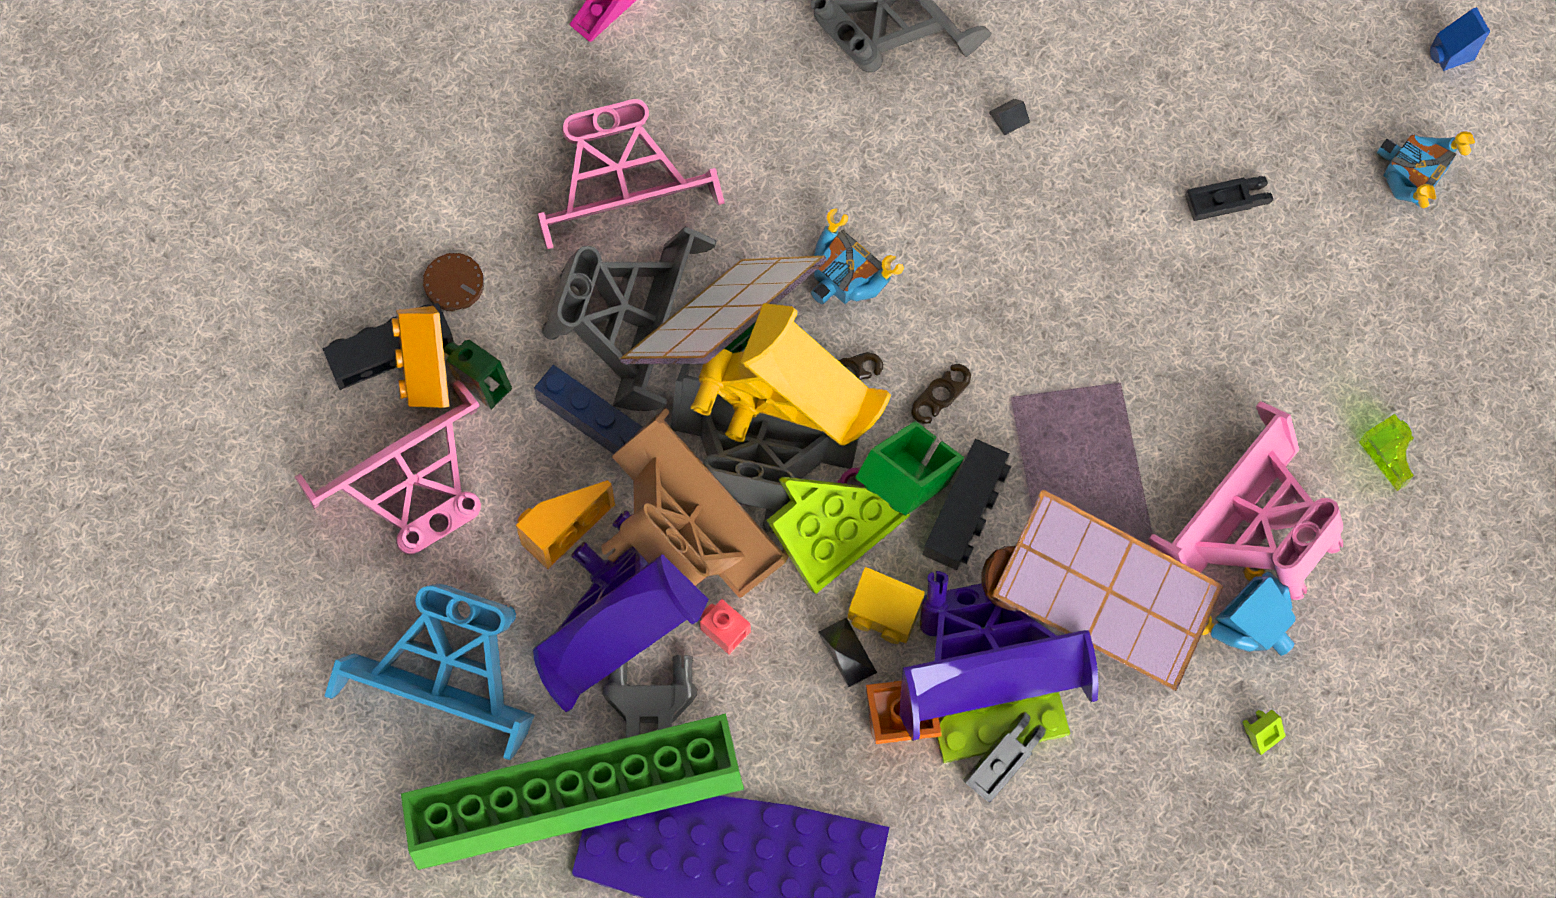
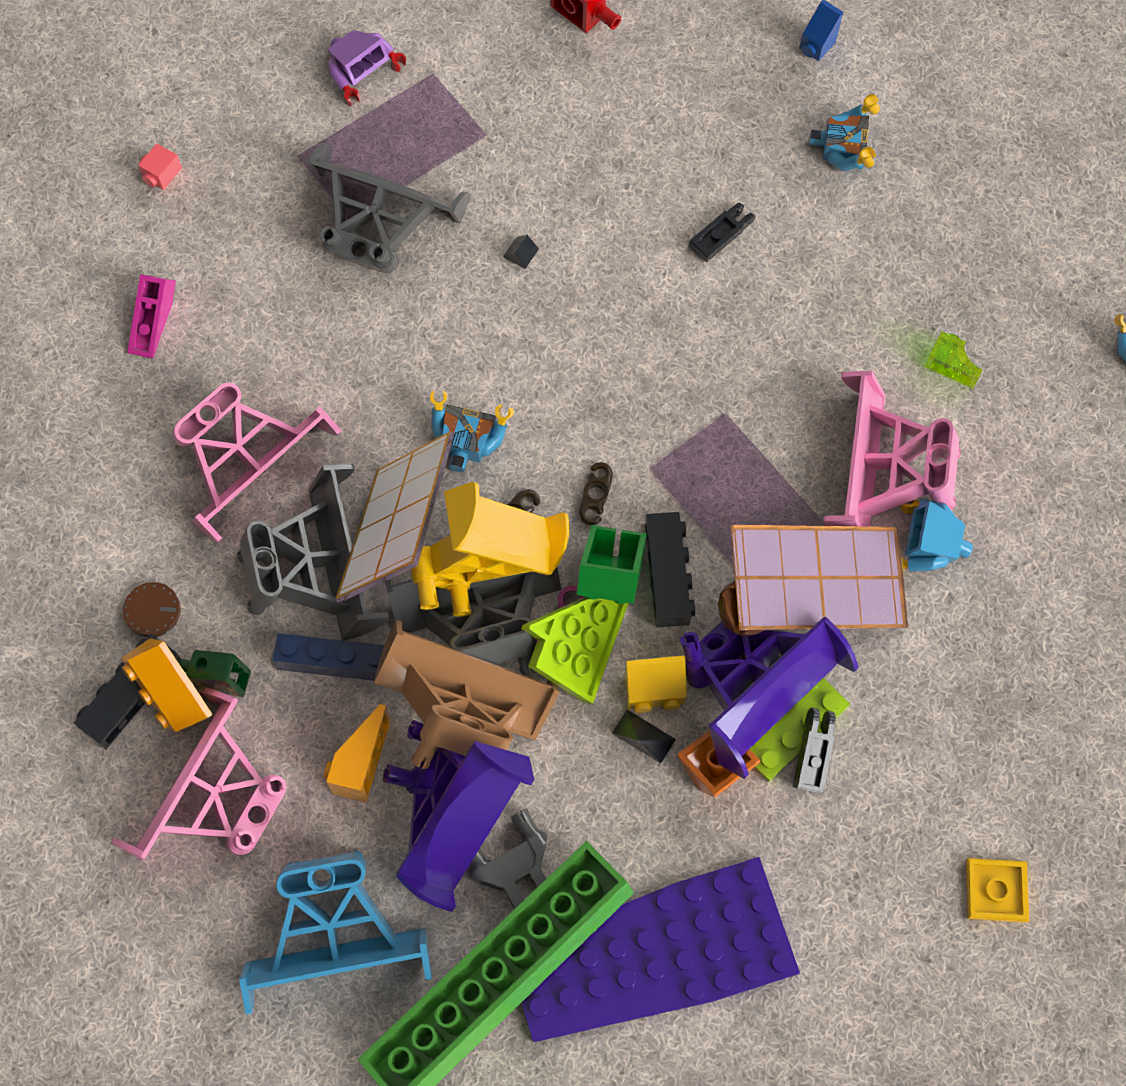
camera: 30 degrees left, 0 degrees up
(724, 625) = (543, 767): coral brick -> none
(1265, 731) = (991, 621): lime tile -> none

